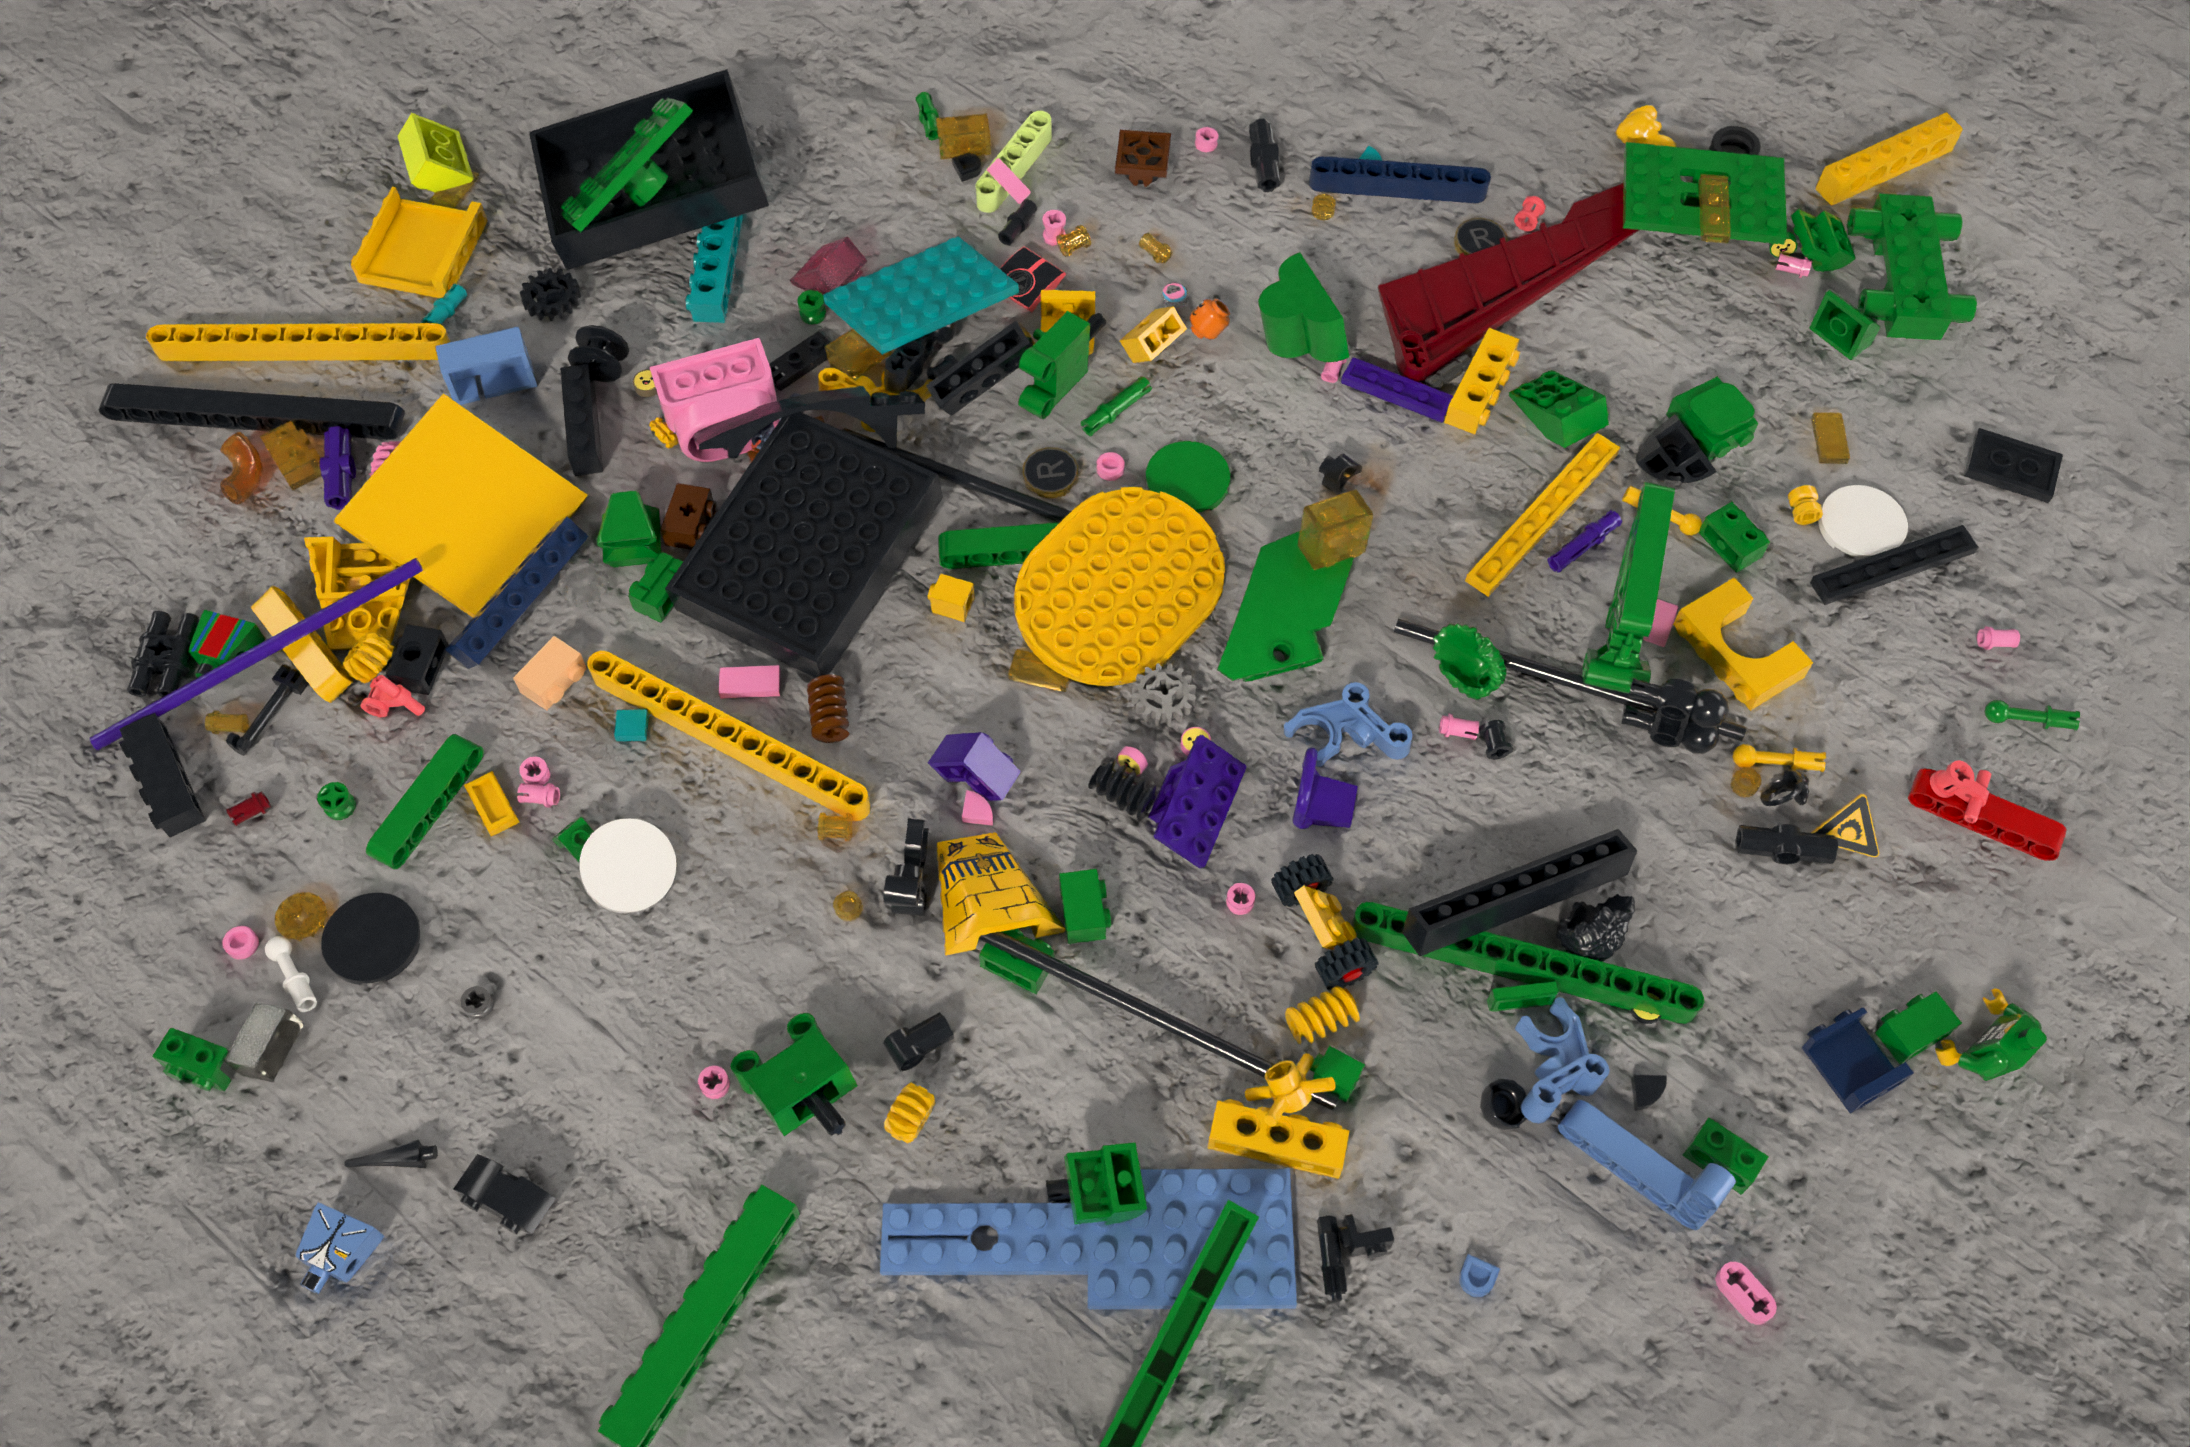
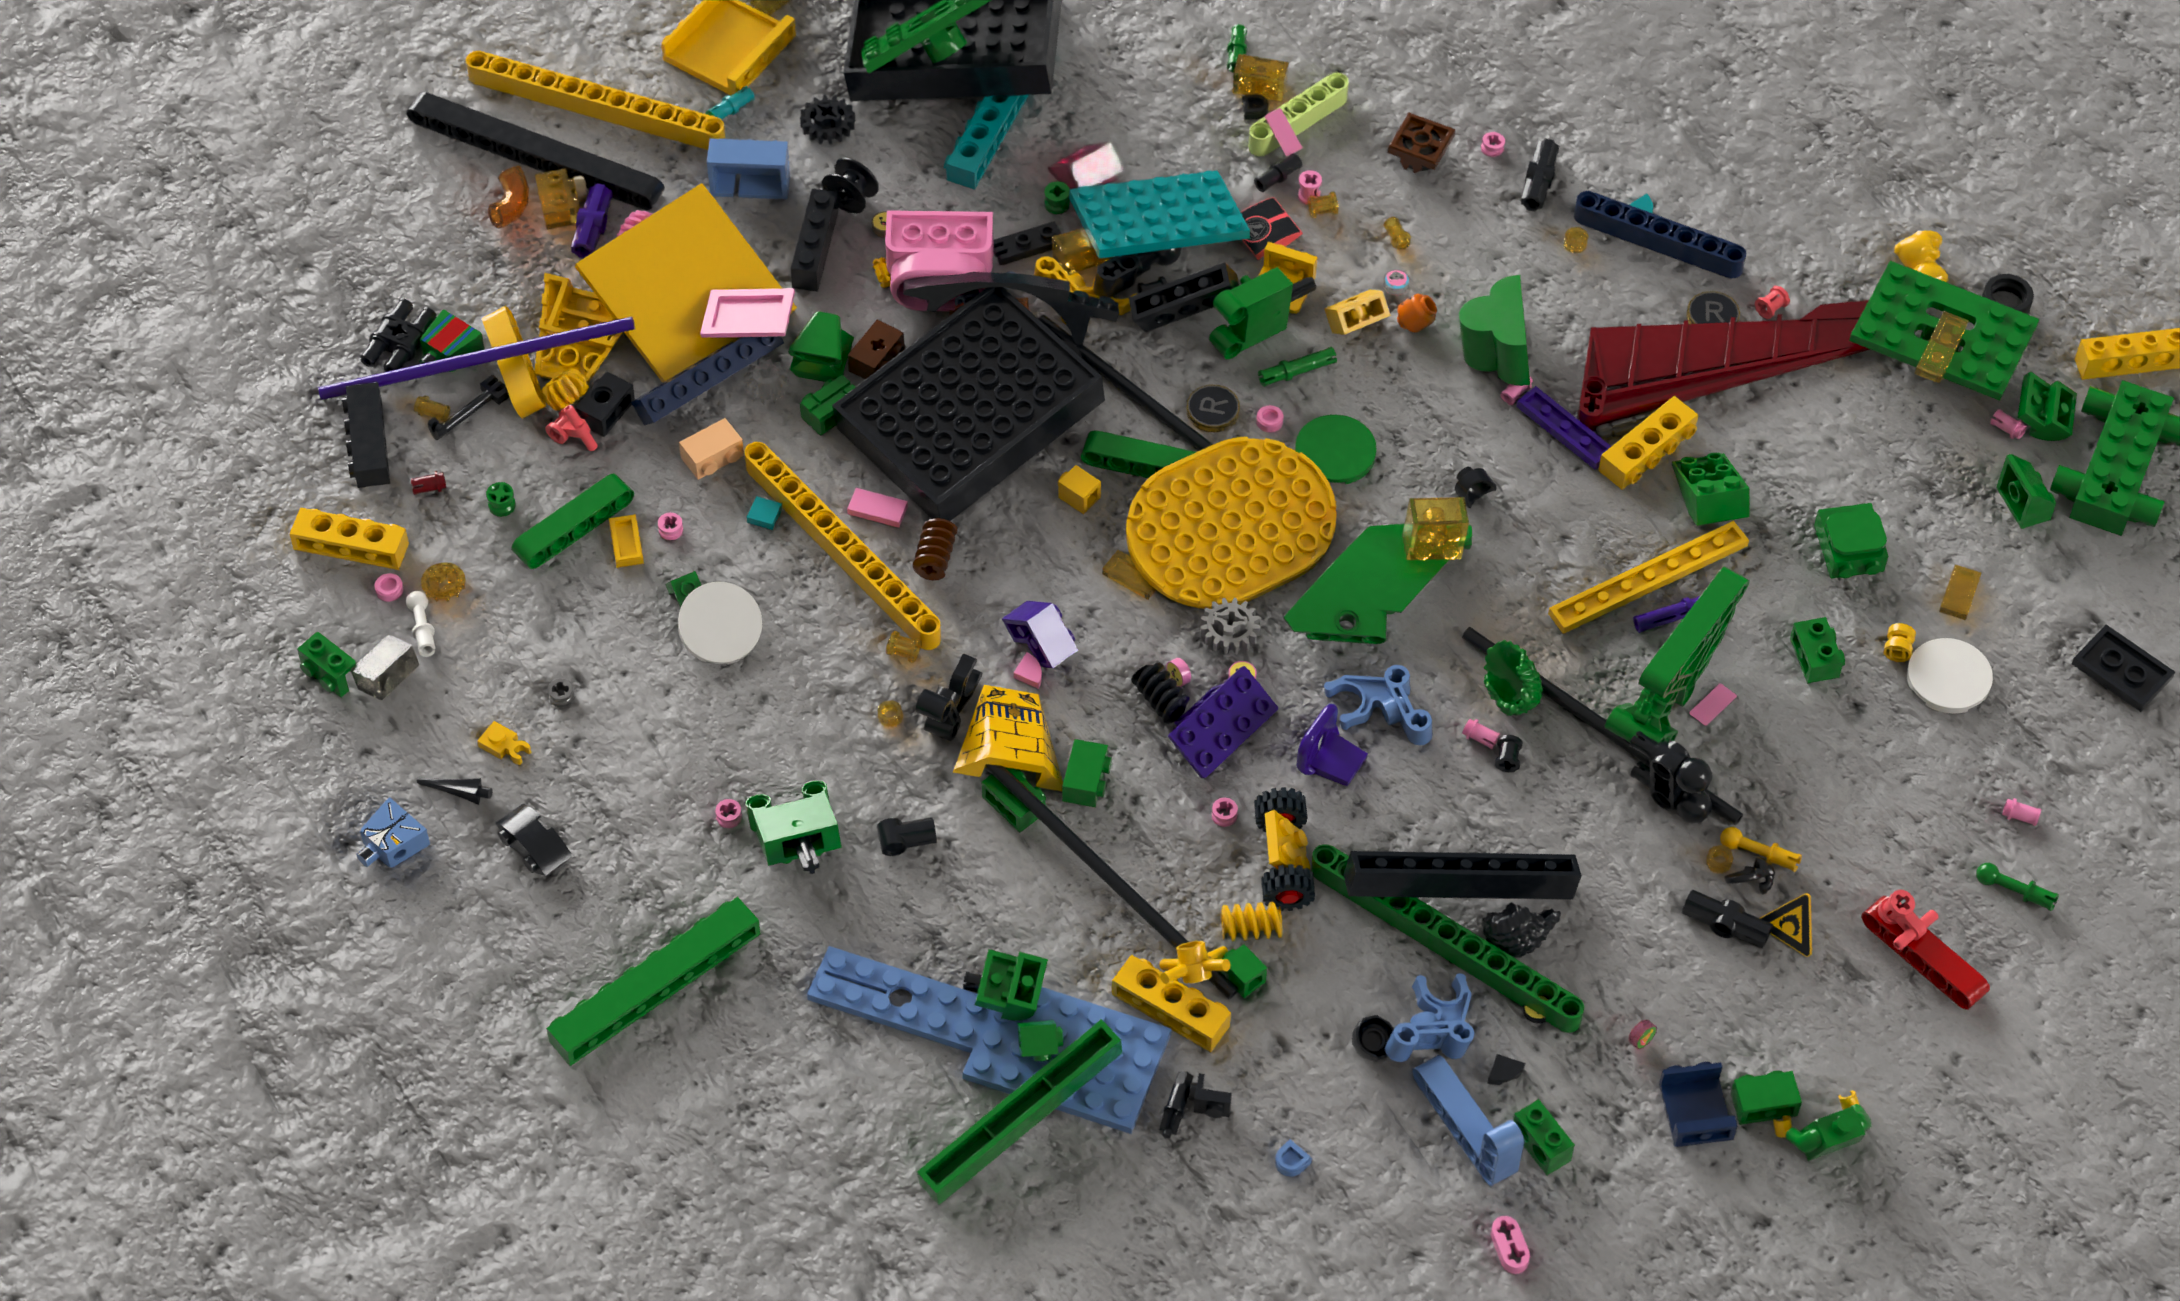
camera: 20 degrees right, 5 degrees down
(124, 900) = (330, 536): none -> yellow brick
(314, 436) = (580, 187): none -> dark tan tile
(371, 938) = (493, 616): black tile -> none
(427, 1082) = (502, 741): none -> yellow plate
(539, 516) = (748, 313): none -> bright pink piece
(546, 795) = (673, 547): bright pink pin -> none
(909, 1113) = (876, 883): yellow gear -> none
(1165, 1244) = (1039, 1039): none -> green brick
(1522, 996) = (1430, 962): green tile -> none
(1674, 454) = (1797, 561): black brick -> none
(1688, 523) = (1782, 626): yellow pin -> none
(1748, 678) = (1769, 775): yellow arch -> none
(1765, 1000) = (1642, 1034): none -> clear pink tile
(1787, 249) = (2009, 402): light yellow tile -> none
(1893, 564) = (1957, 719): black plate -> none

